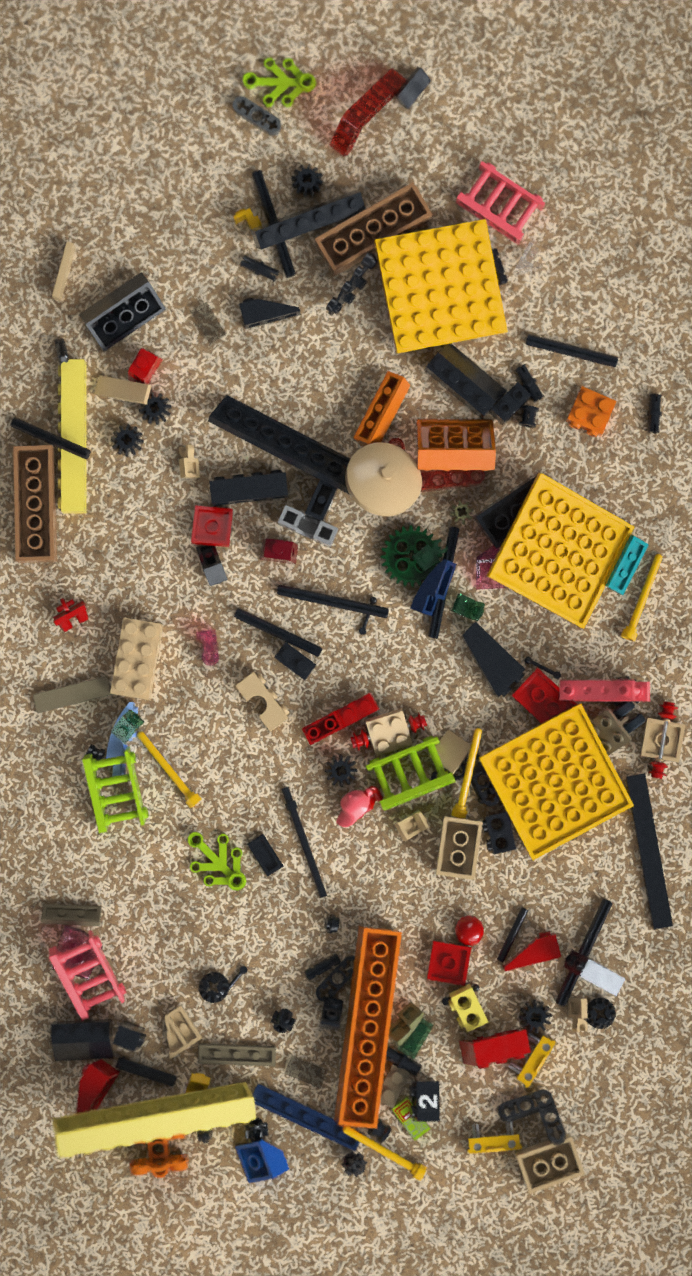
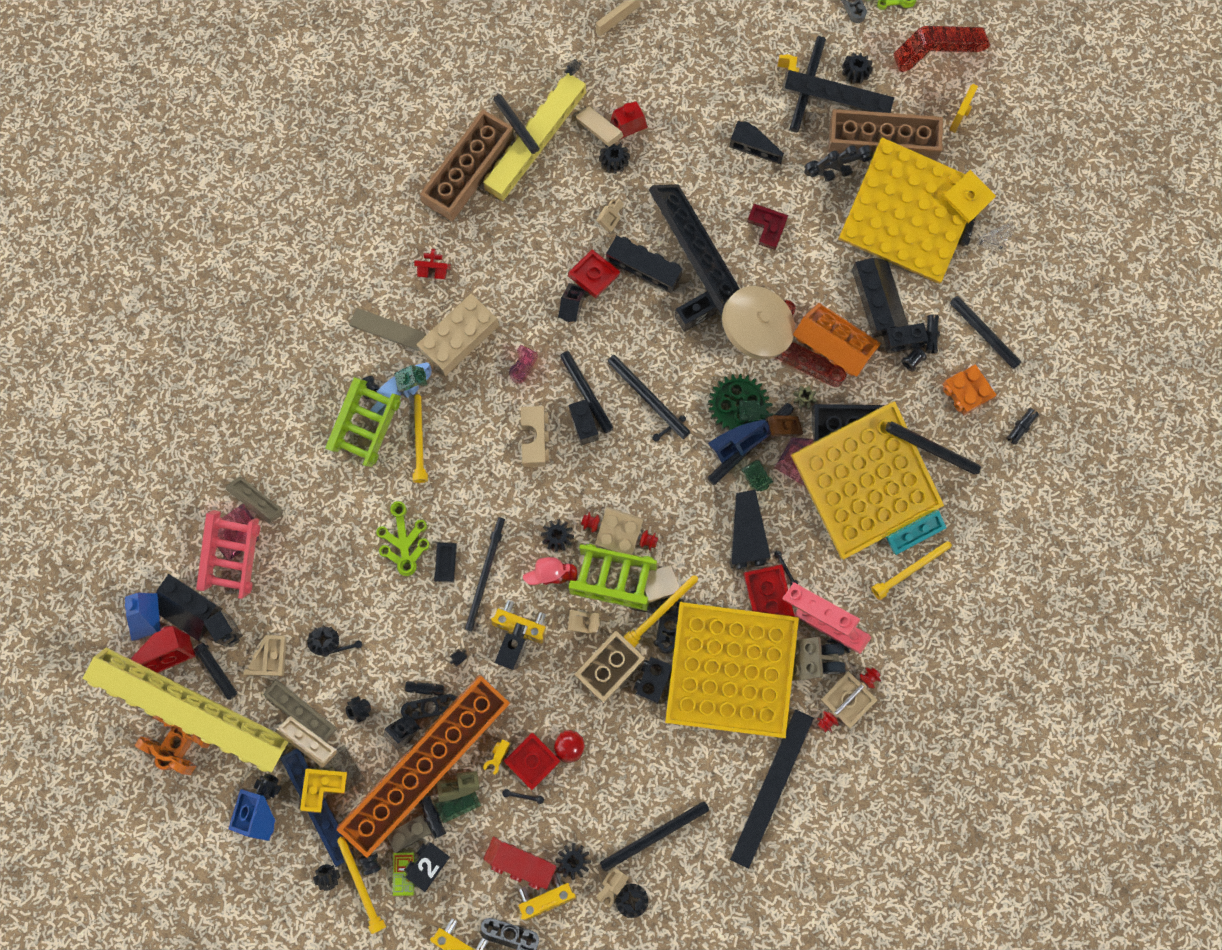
camera: 35 degrees right, 10 degrees down
(55, 1071) = (142, 615): none -> blue slope
(120, 444) = (576, 172): black gear -> none
(122, 311) = (641, 71): black slope -> none
(197, 1082) = (249, 709): yellow bracket -> none
(204, 1136) = (223, 759): black plate -> none
(208, 323) = (703, 123): clear smoke tile -> none
(259, 268) = (773, 108): black pin -> none
(261, 1074) = (306, 741): none -> tan tile
(279, 551) = (632, 326): dark red torso -> none
(295, 1099) = (318, 782): none -> yellow plate
(307, 527) = (665, 317): light grey arch -> none
(329, 374) = (771, 221): none -> dark red plate
(340, 718) = (587, 494): red slope -> none
(362, 864) = (505, 620): none -> yellow piece
(372, 893) = (508, 655): none -> black torso
(382, 409) = (797, 272): orange brick -> none
(413, 87) = (990, 53): black tile -> none
(418, 972) = (500, 751): none -> yellow plate
(425, 159) = (964, 109): none -> yellow plate
(462, 550) = (785, 426): none -> reddish brown plate
(471, 1006) = (524, 812): light yellow brick -> none
(483, 241) = (969, 196): none -> yellow plate
(498, 221) = (996, 207): coral fence -> none
(512, 934) = (603, 776): black bar -> none
(537, 951) = (616, 805): red slope -> none
(594, 972) = (650, 857): window -> none
(596, 487) = (932, 447): none -> black axle

